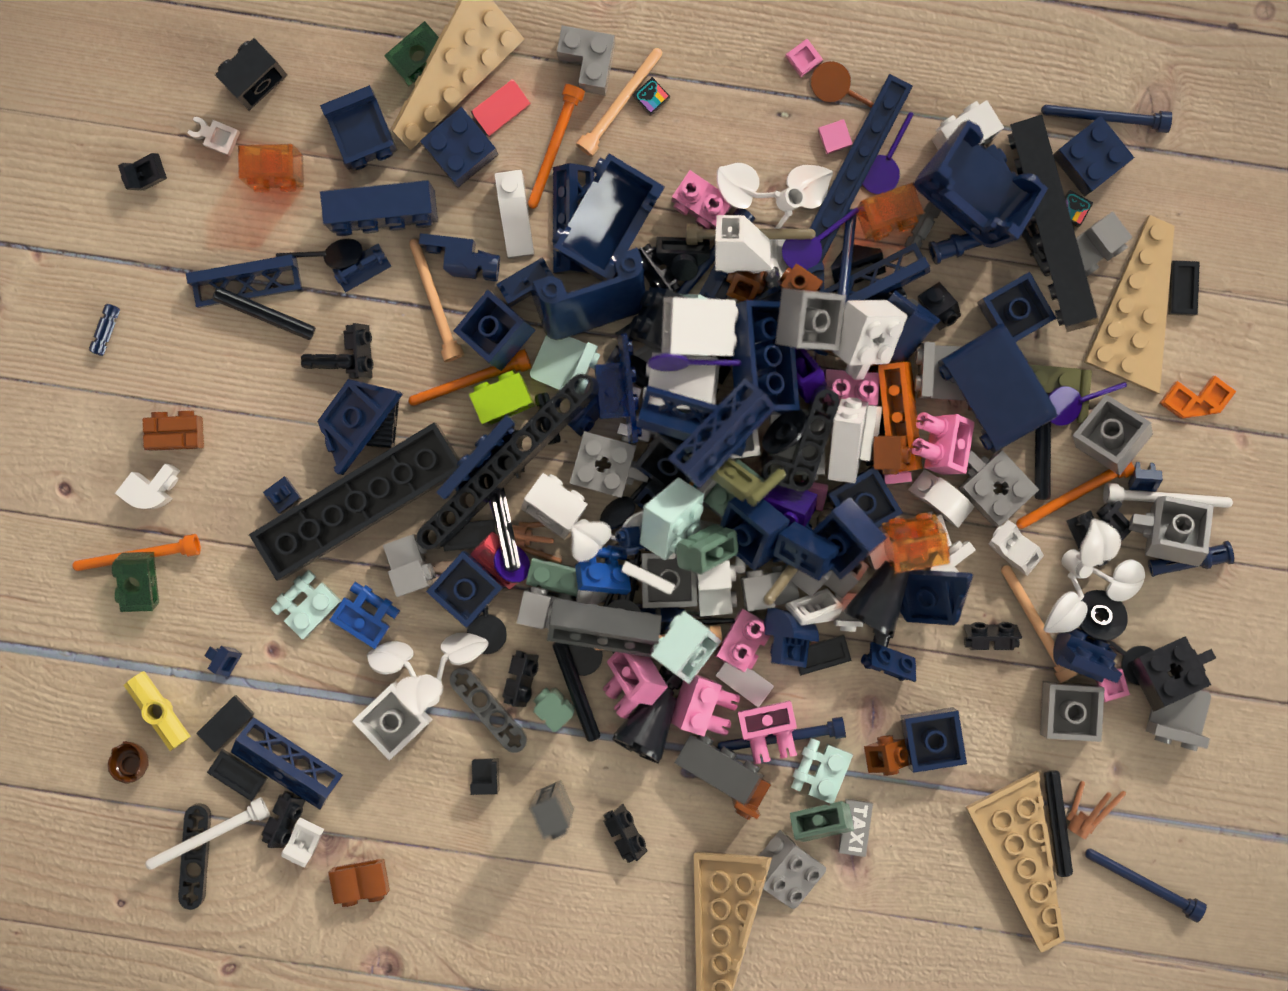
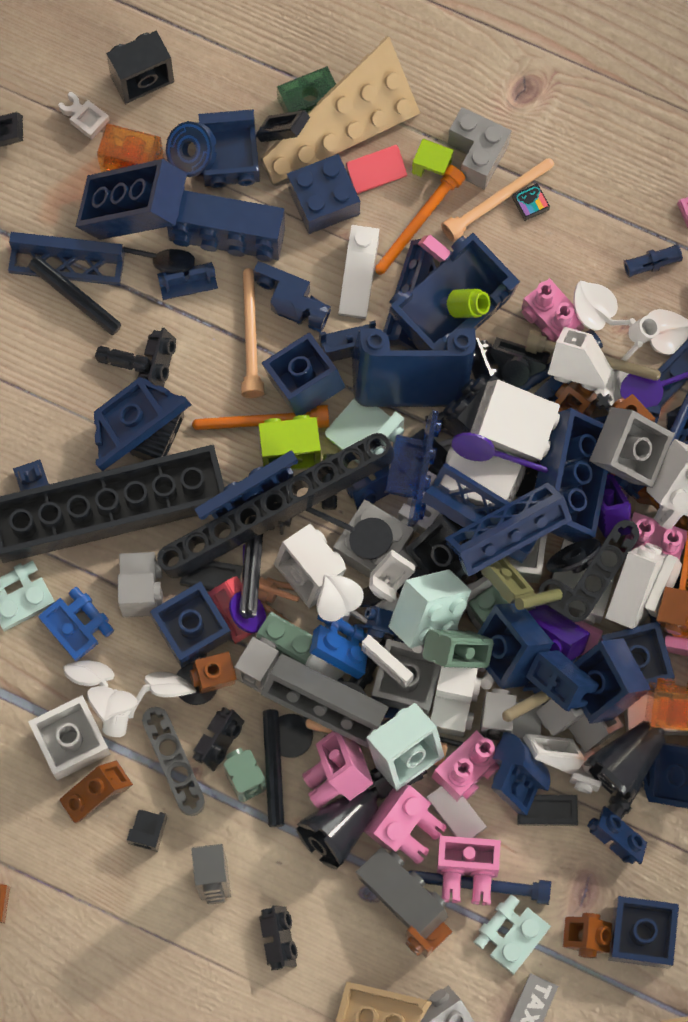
camera: 10 degrees right, 15 degrees down
(285, 213) = (131, 199): none -> dark blue brick
(313, 147) = (178, 144): none -> dark blue tile
(401, 93) = (282, 126): none -> black tile
(430, 755) = (94, 789): none -> dark orange bracket
(498, 624) = (213, 672): none -> dark orange brick
(548, 83) = (432, 158): none -> lime panel
(577, 174) = (434, 248): none -> bright pink tile
(599, 467) = (367, 539): none -> black piece
(623, 219) = (468, 303): none -> lime brick
(627, 497) = (390, 576): none -> white bracket
(778, 120) = (653, 260): none -> dark blue pin
(821, 821) = (497, 984): sand green brick -> none

